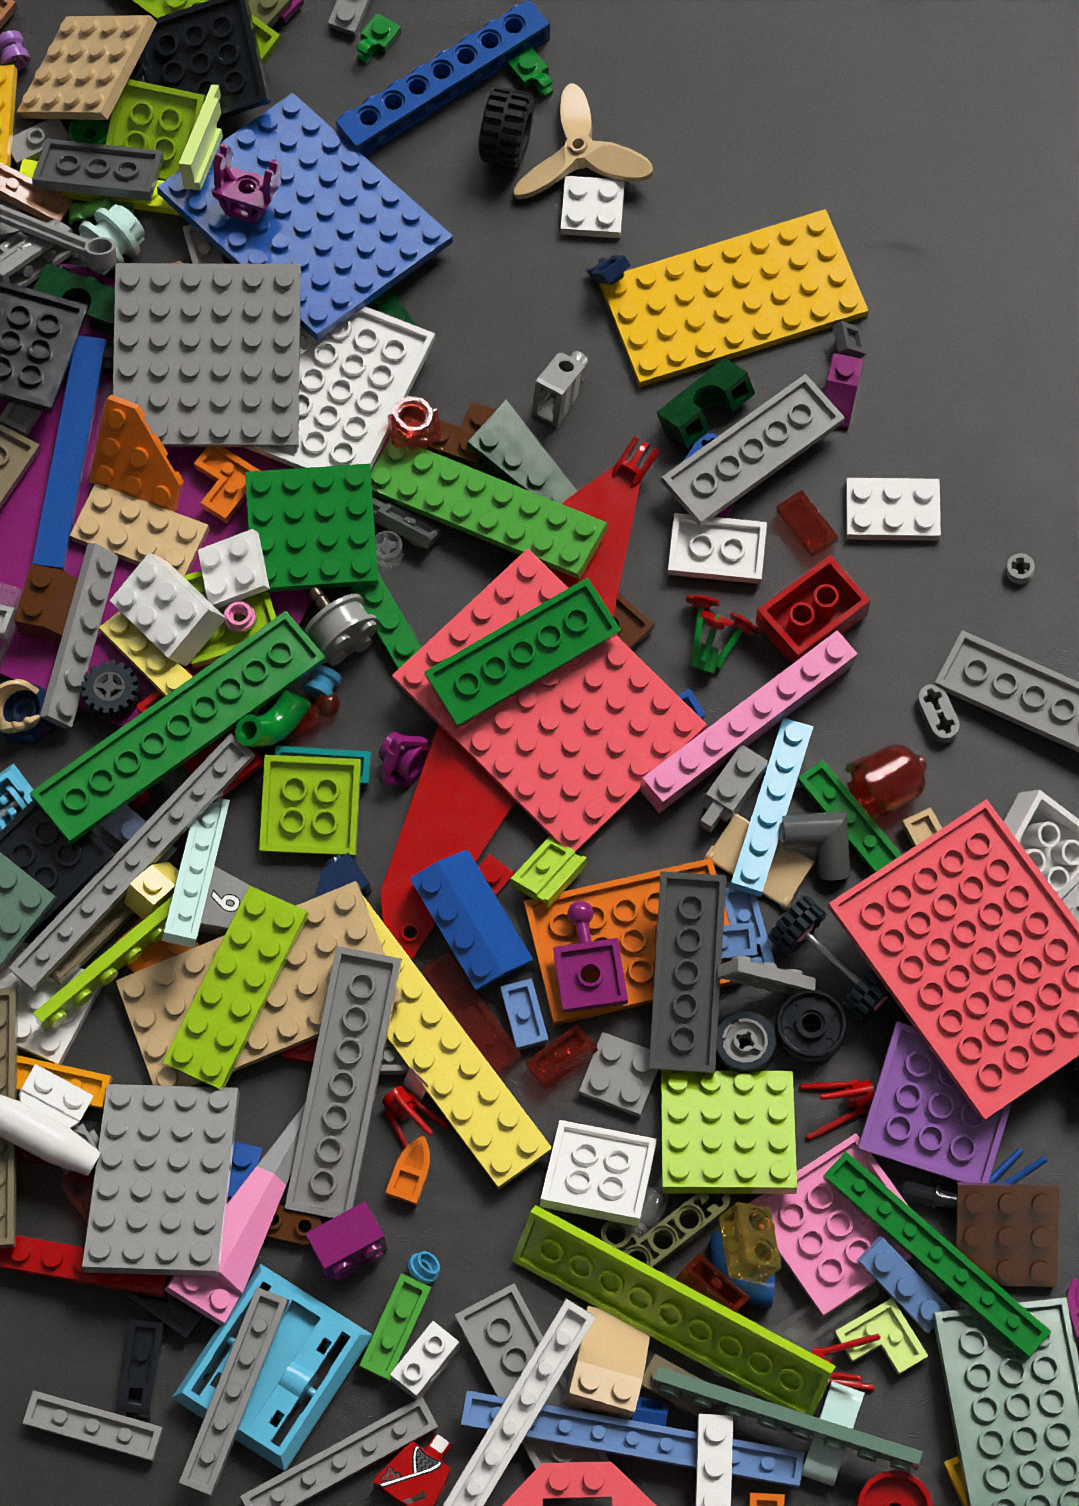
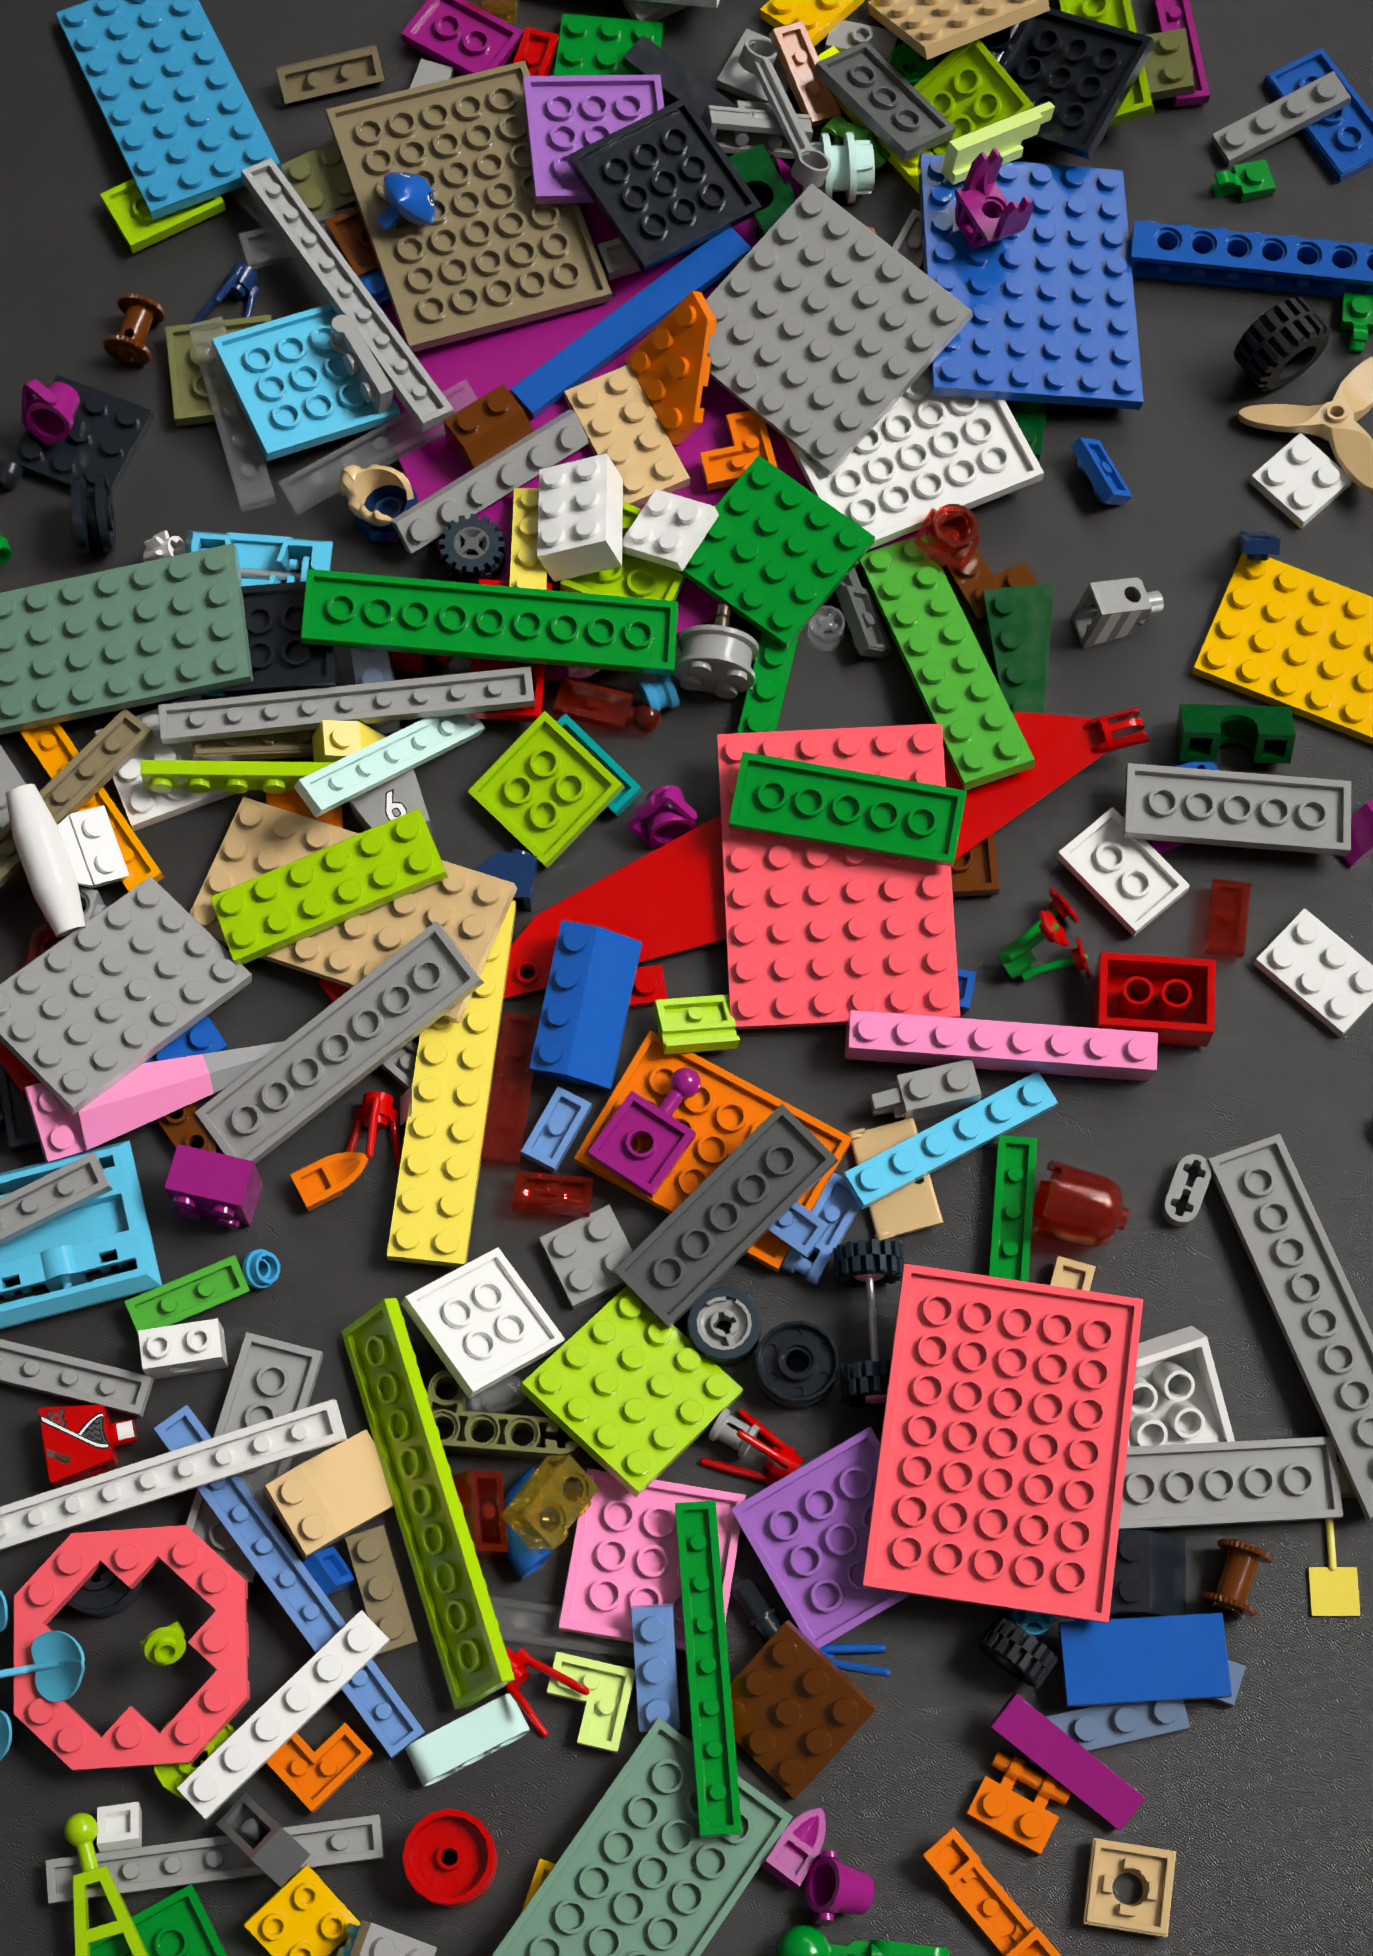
camera: 40 degrees right, 0 degrees up
(239, 608) = (636, 566): bright pink plate -> none
(274, 724) = (575, 691): green cylinder -> none
(457, 300) = (1098, 466): none -> blue plate
(765, 976) = (794, 1281): light grey plate -> none
(800, 1424) = (438, 1705): sand green plate -> none
(810, 1103) = (726, 1429): none -> light grey bush
(828, 834) = (975, 1207): dark grey brick -> none

